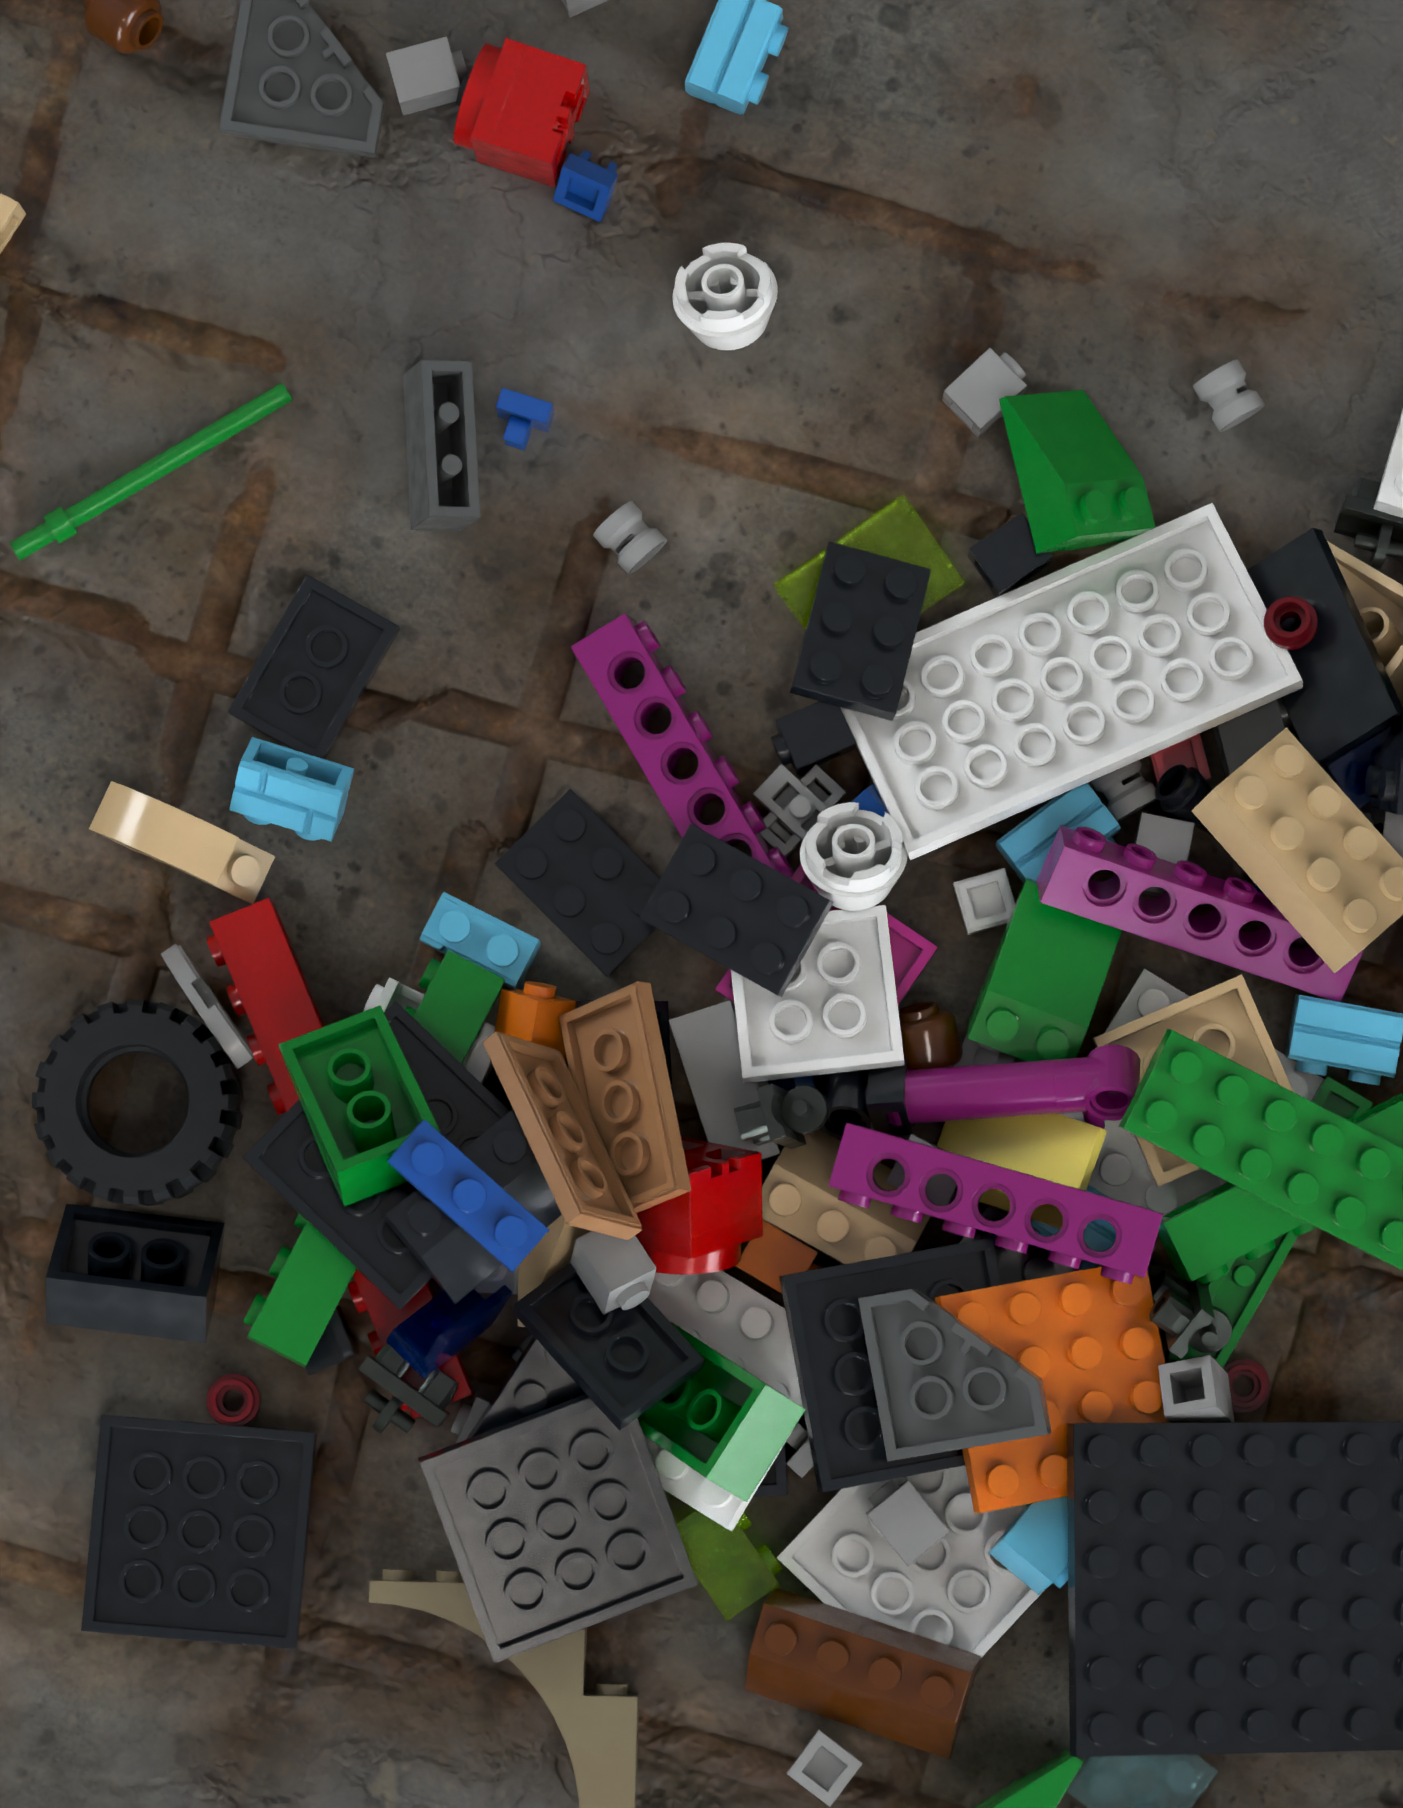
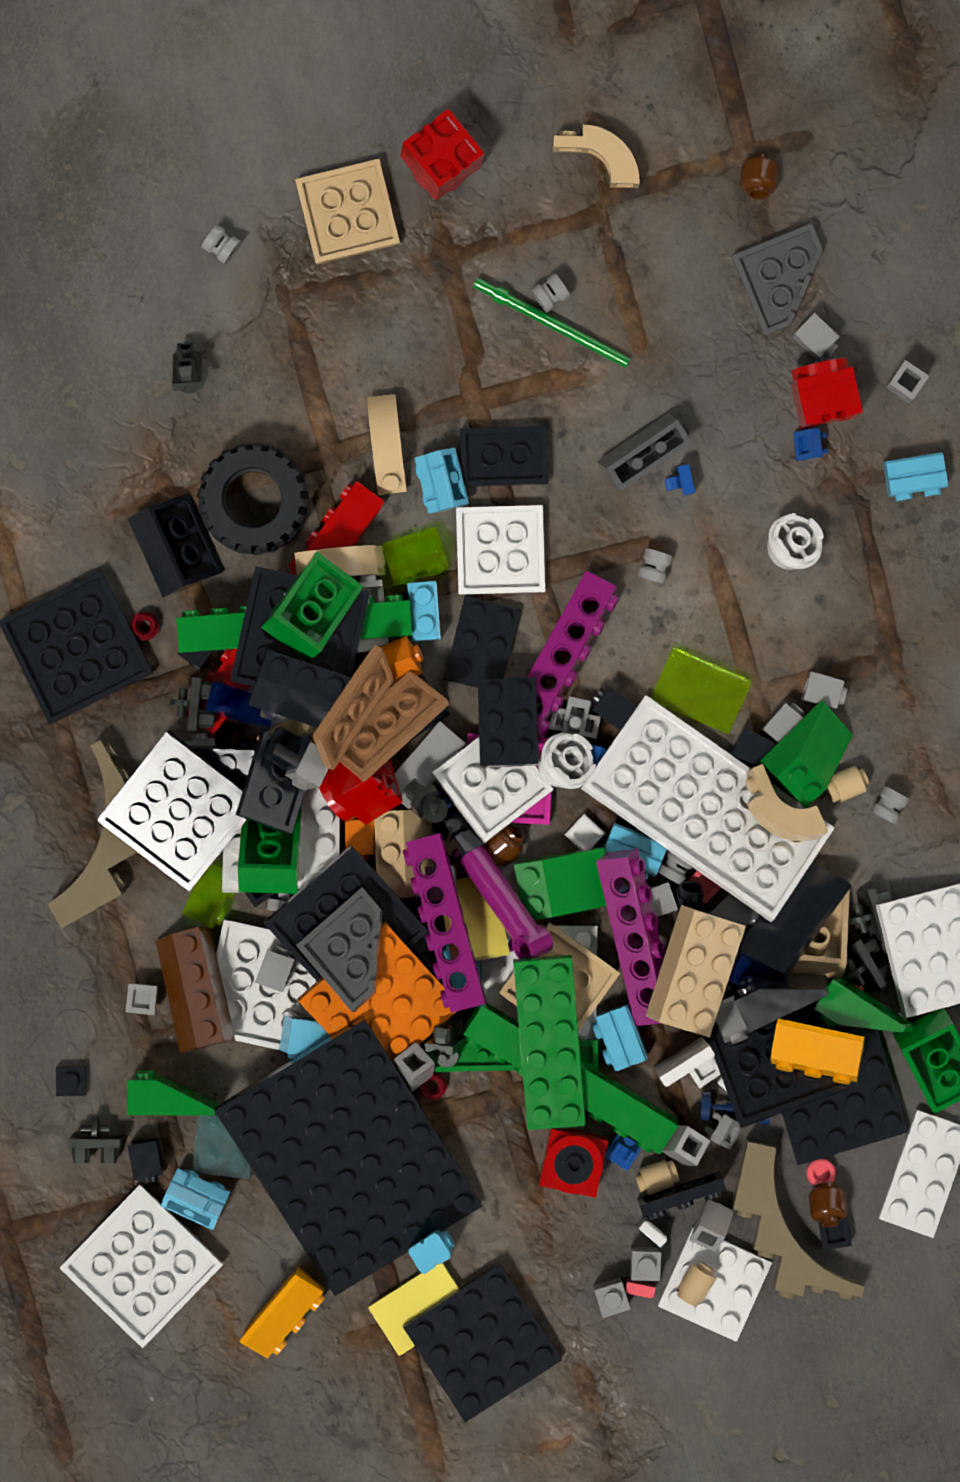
camera: 50 degrees right, 5 degrees up
(103, 444) = (544, 295): none -> light grey wheel
(207, 1005) = (318, 503): light grey tile -> none
(333, 994) = (353, 560): none -> tan arch
(385, 903) = (415, 556): none -> clear neon green bracket
(457, 763) = (500, 549): none -> white plate
(467, 1195) = (298, 682): blue plate -> none
(564, 1285) = (286, 748): none -> black panel
(860, 631) = (674, 700): black plate -> none
(996, 483) = (783, 721): none -> light grey brick
(1142, 576) = (777, 816): none -> tan arch
(1156, 441) = (847, 784): none -> tan brick
(1290, 608) = (803, 892): dark red plate -> none

